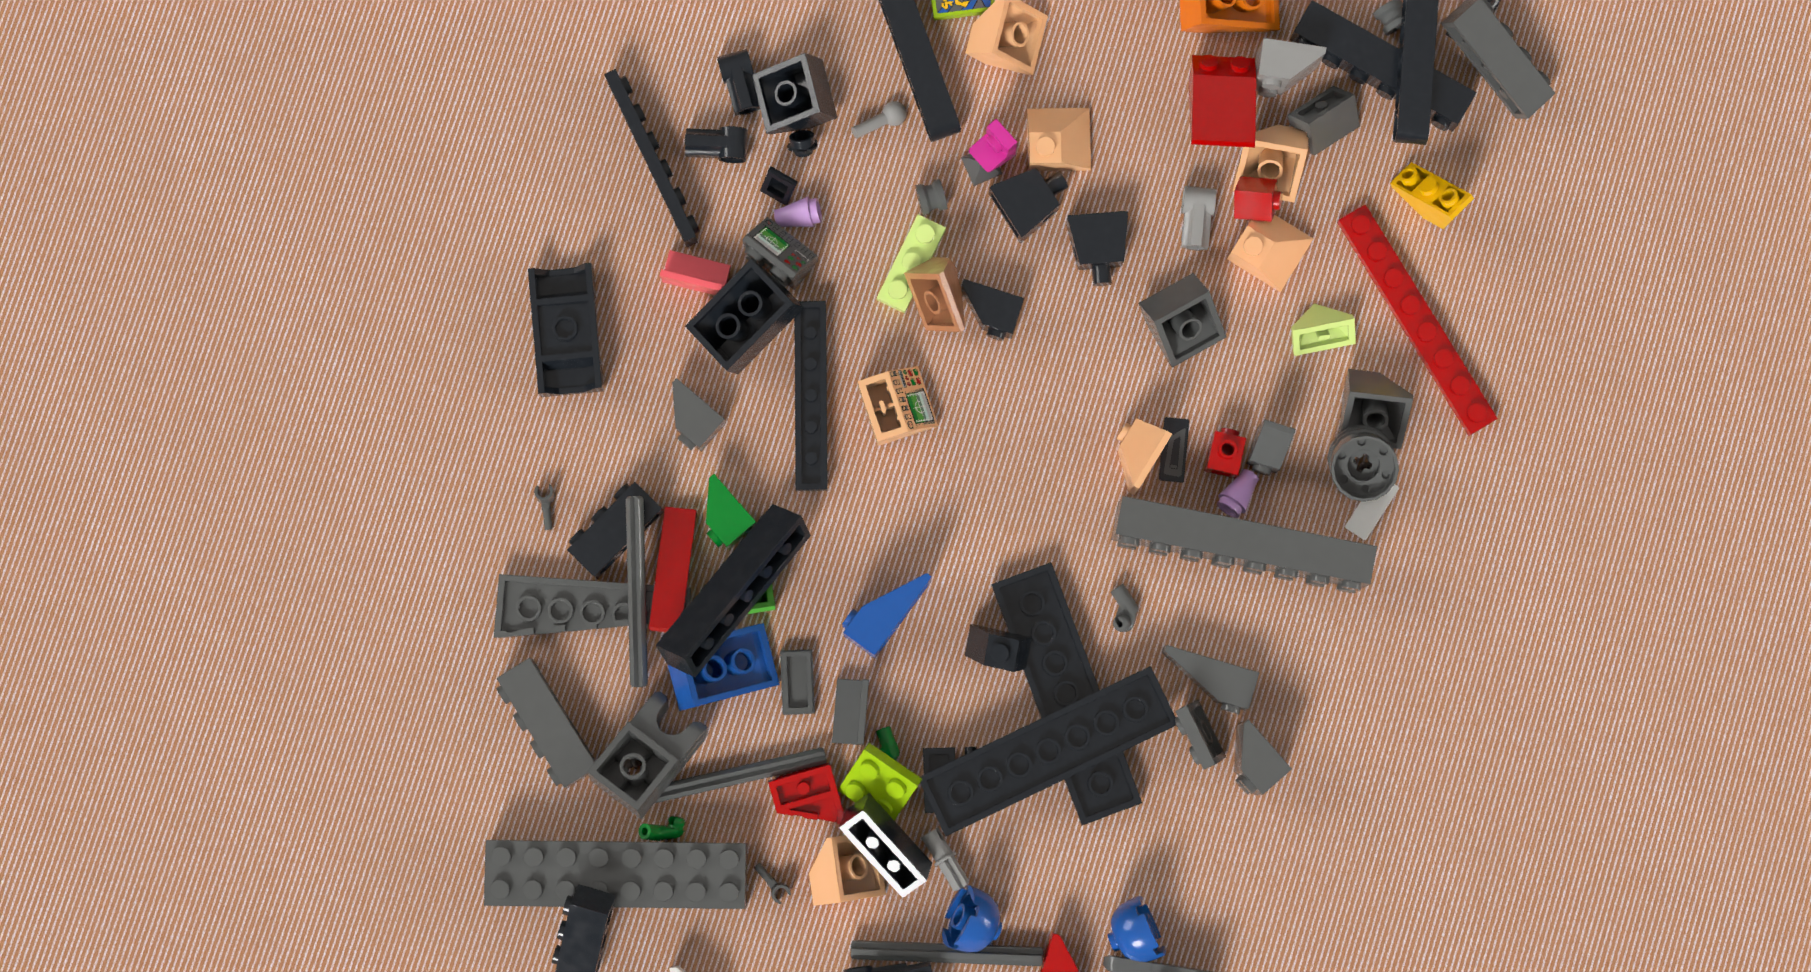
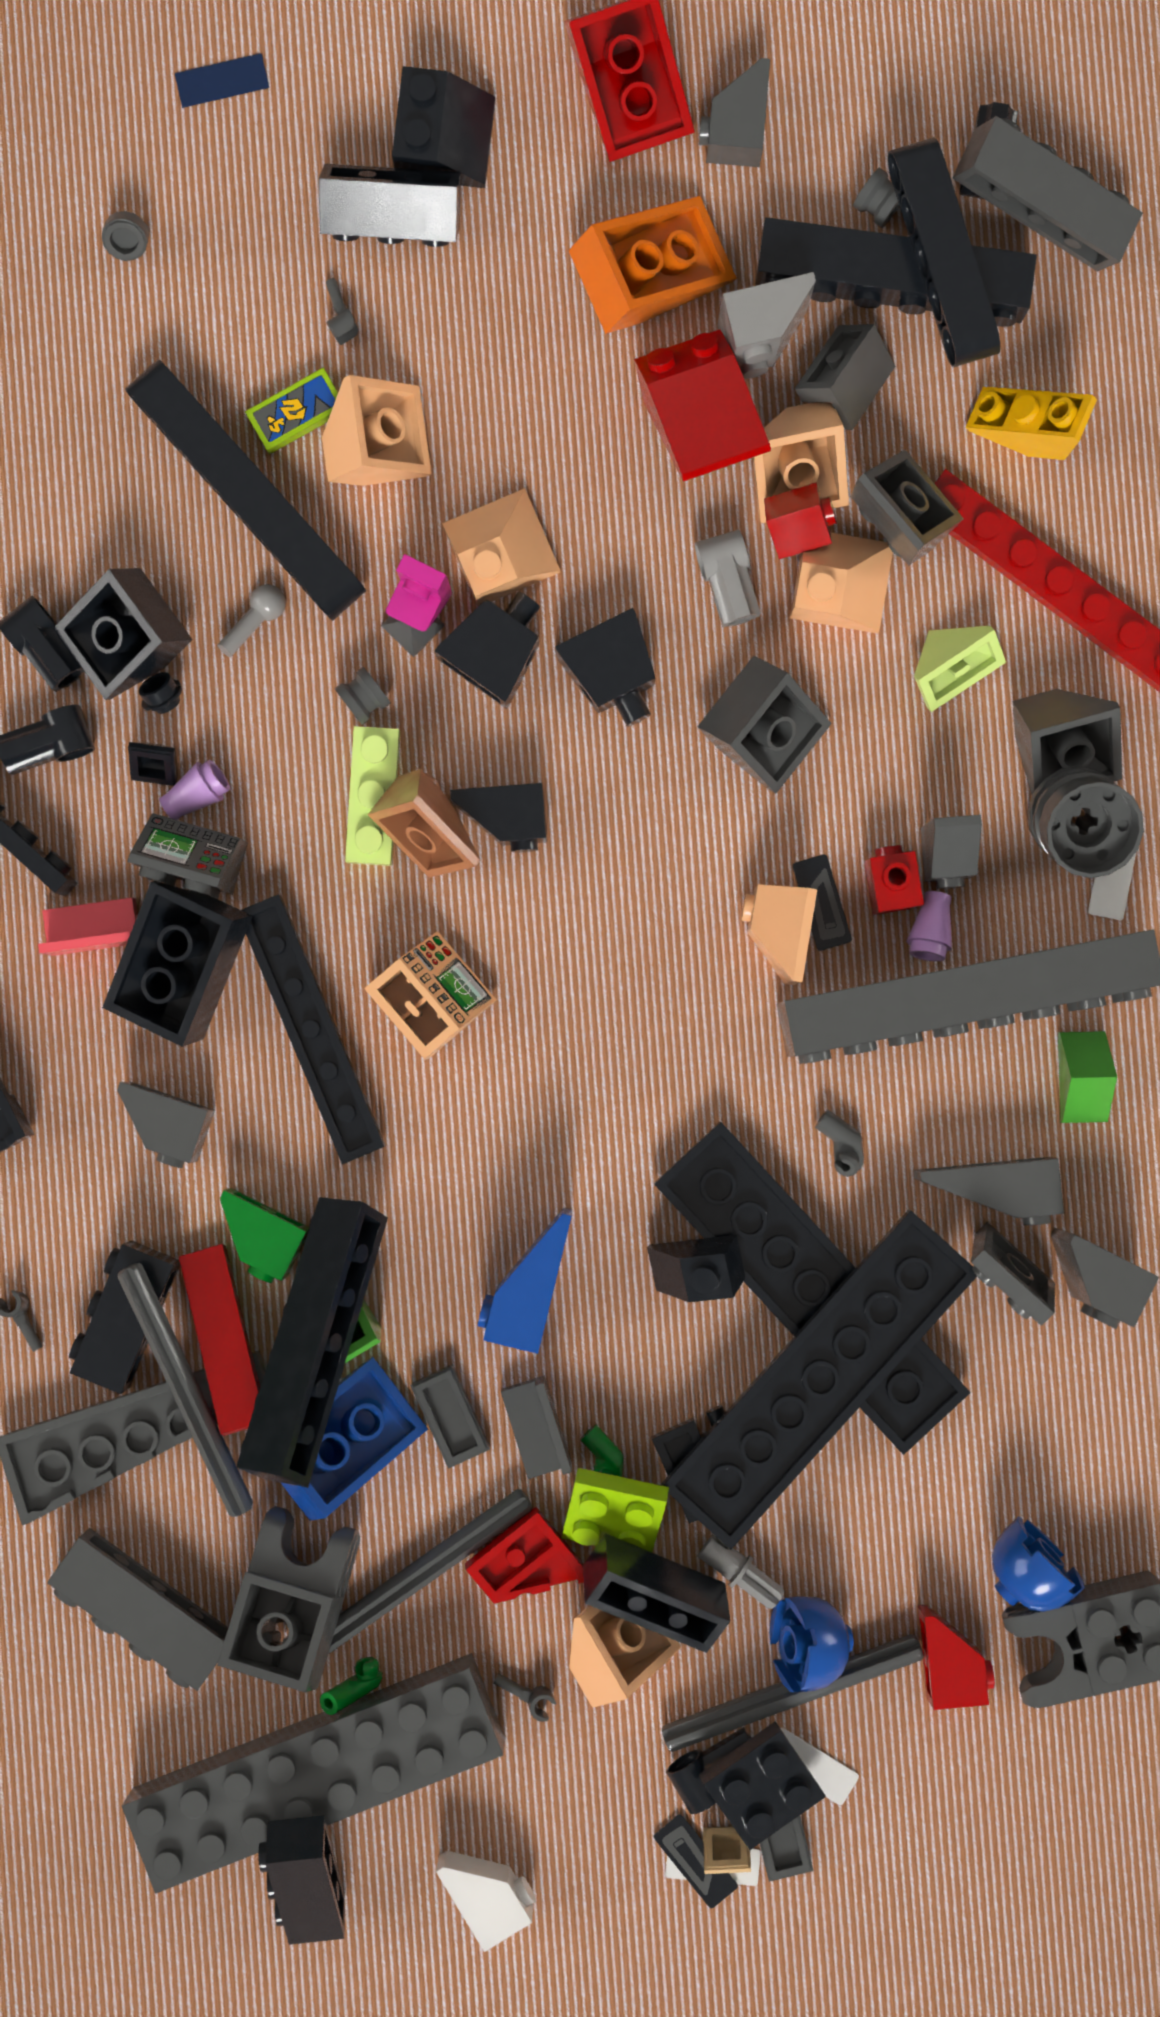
camera: 15 degrees left, 5 degrees up
(1299, 631) = (1085, 1077): none -> bright green slope
(1328, 217) = (905, 506): none -> dark grey slope

